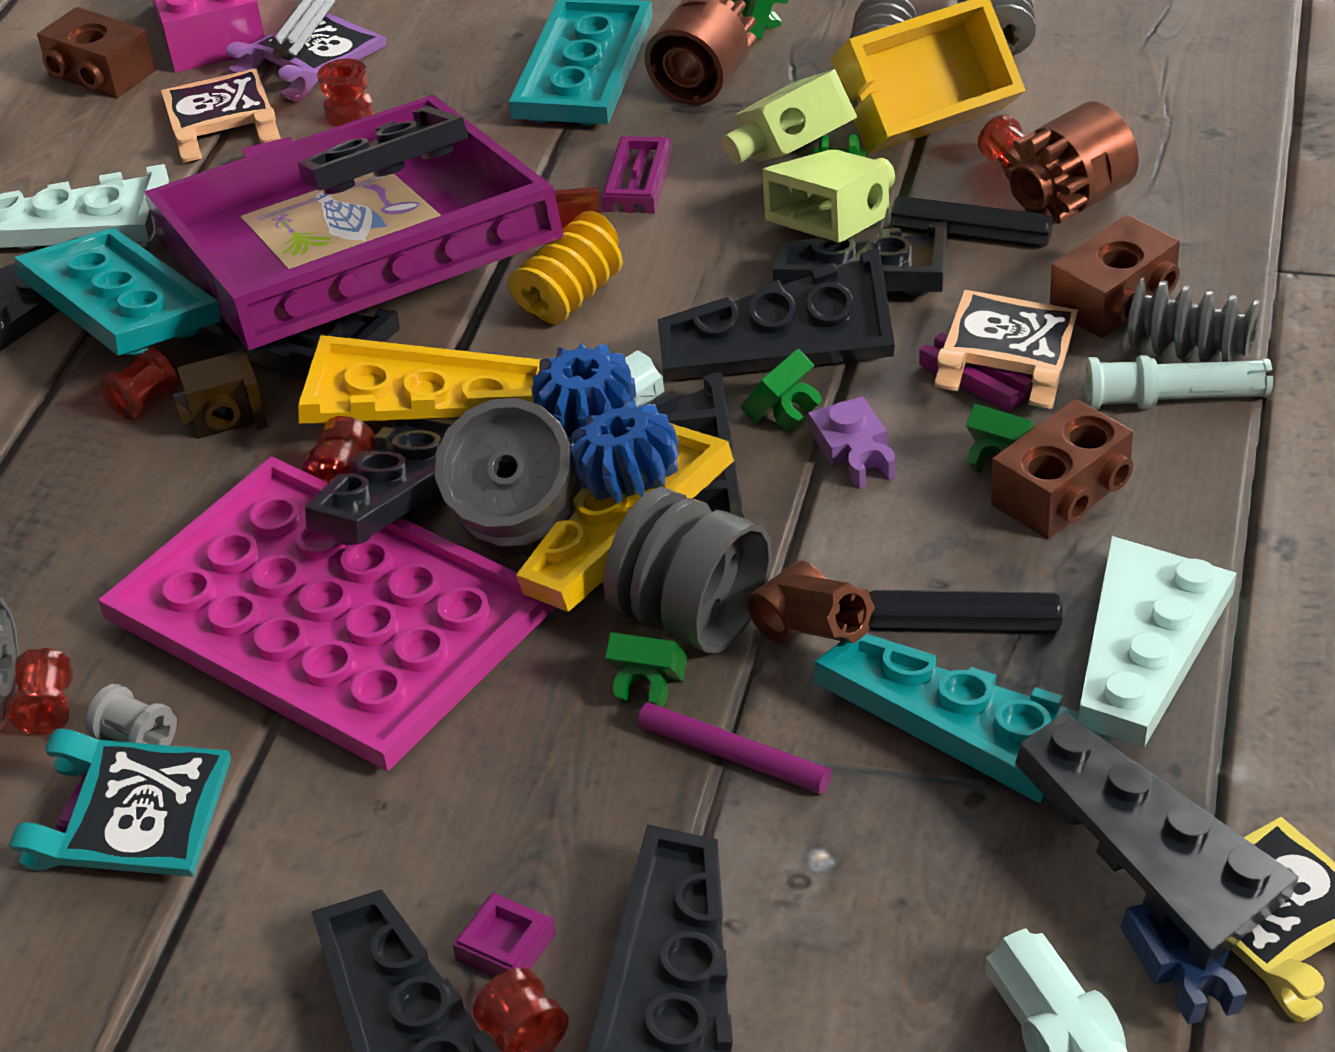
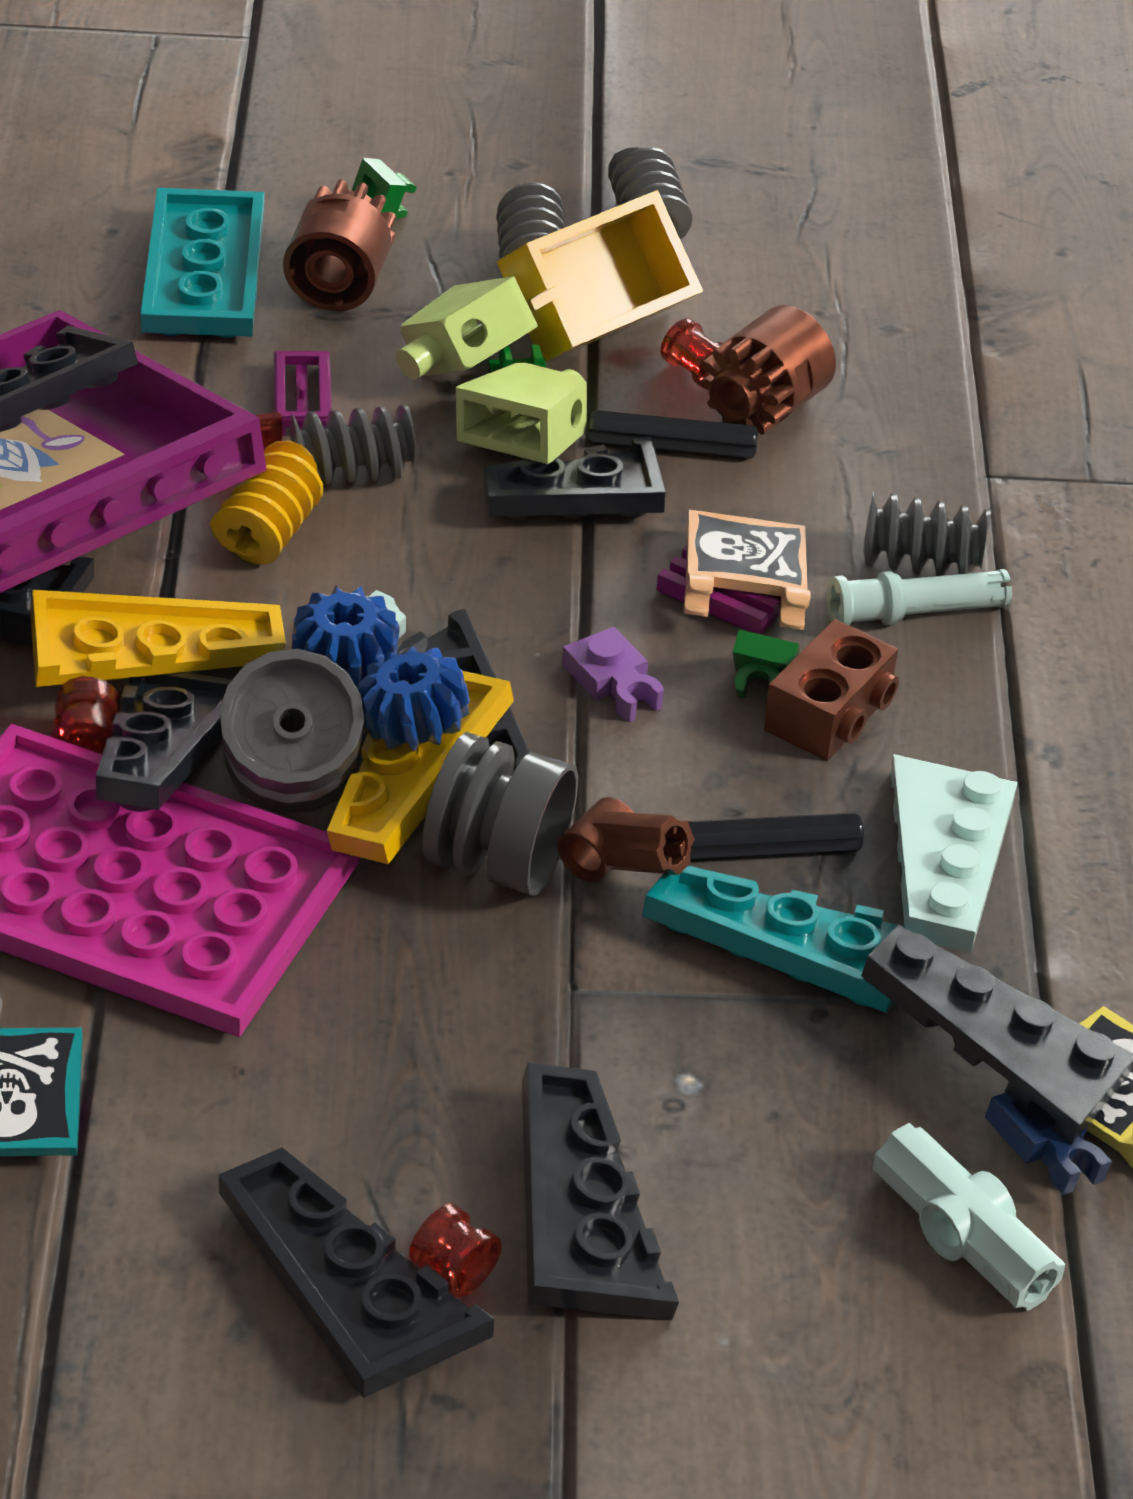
camera: 20 degrees left, 0 degrees up
(503, 936) = (408, 1183): magenta tile -> none
(645, 659) = (474, 906): green tile -> none
(662, 219) = (358, 442): none -> dark grey piece
(734, 748) = (579, 985): magenta bar -> none
(780, 390) = (532, 628): green tile -> none
(827, 316) = (539, 550): black wing -> none
(1106, 270) = (834, 487): copper brick -> none

